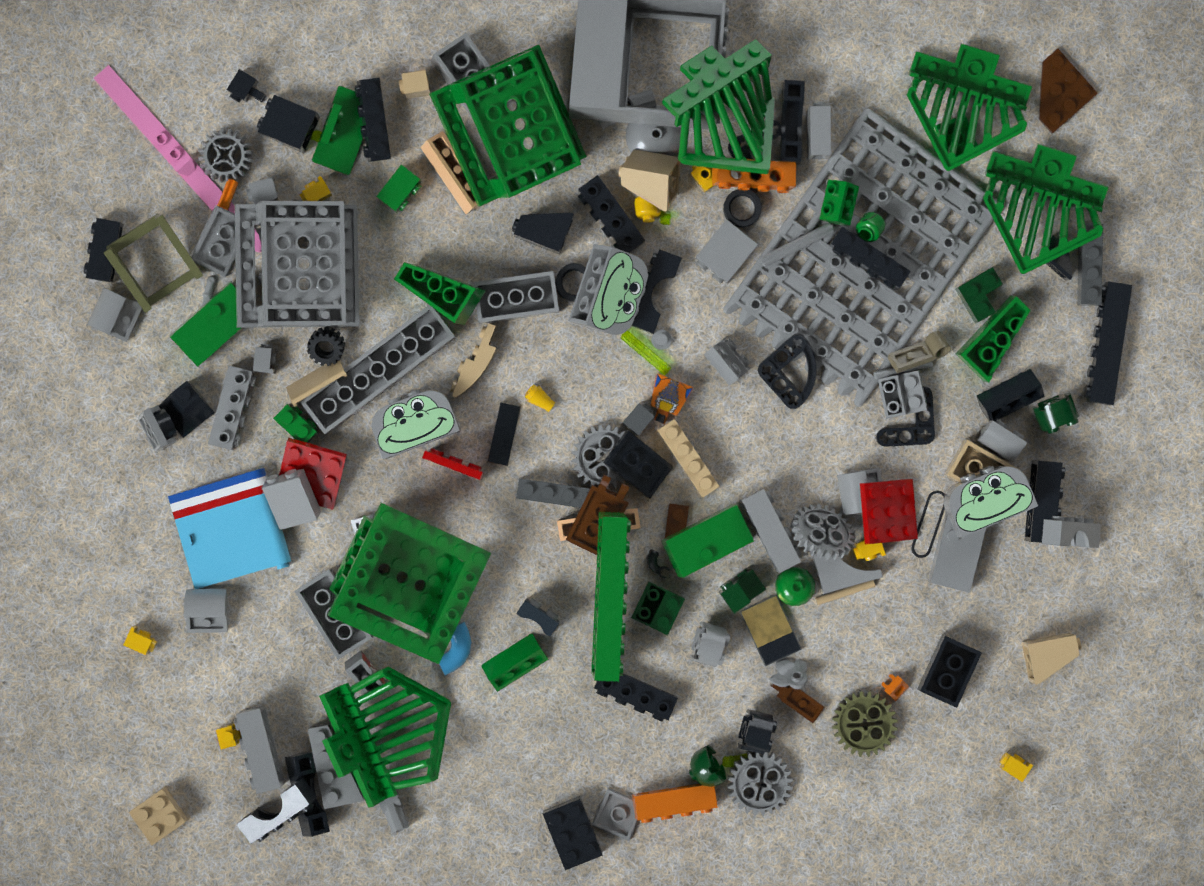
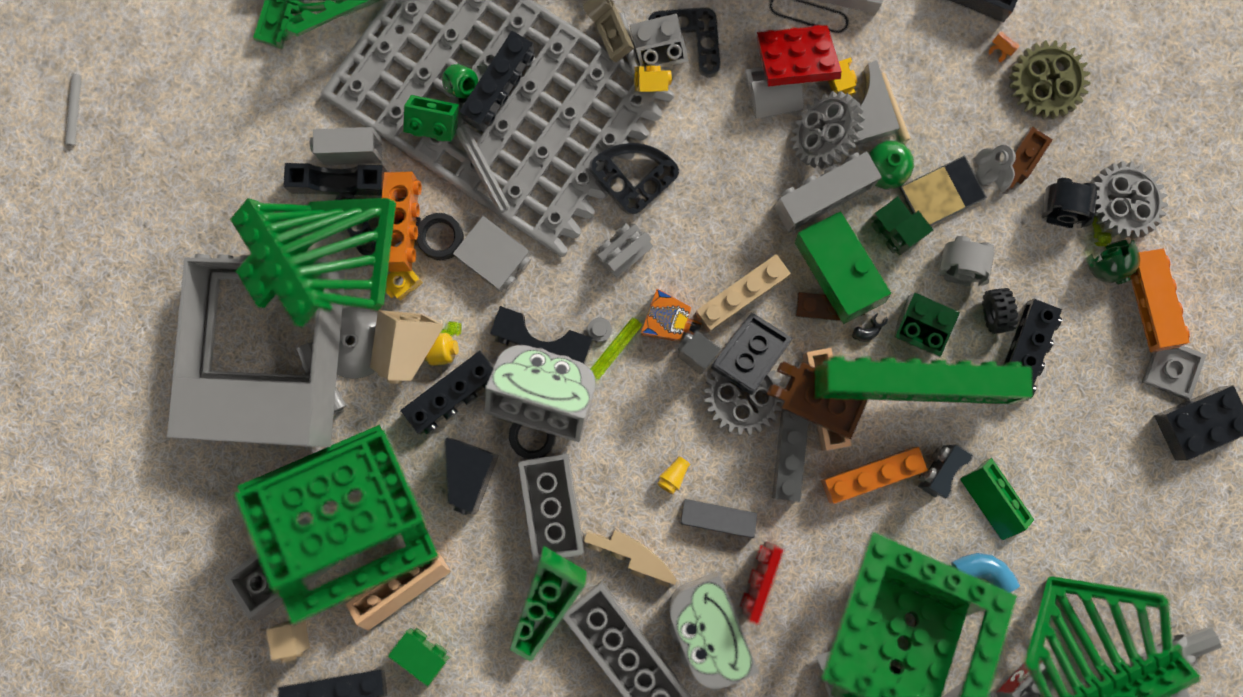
camera: 85 degrees left, 5 degrees down
(536, 560) = (874, 475): none -> orange brick
(668, 669) = (1000, 310): none -> black tyre
(868, 387) = (652, 79): none -> yellow brick

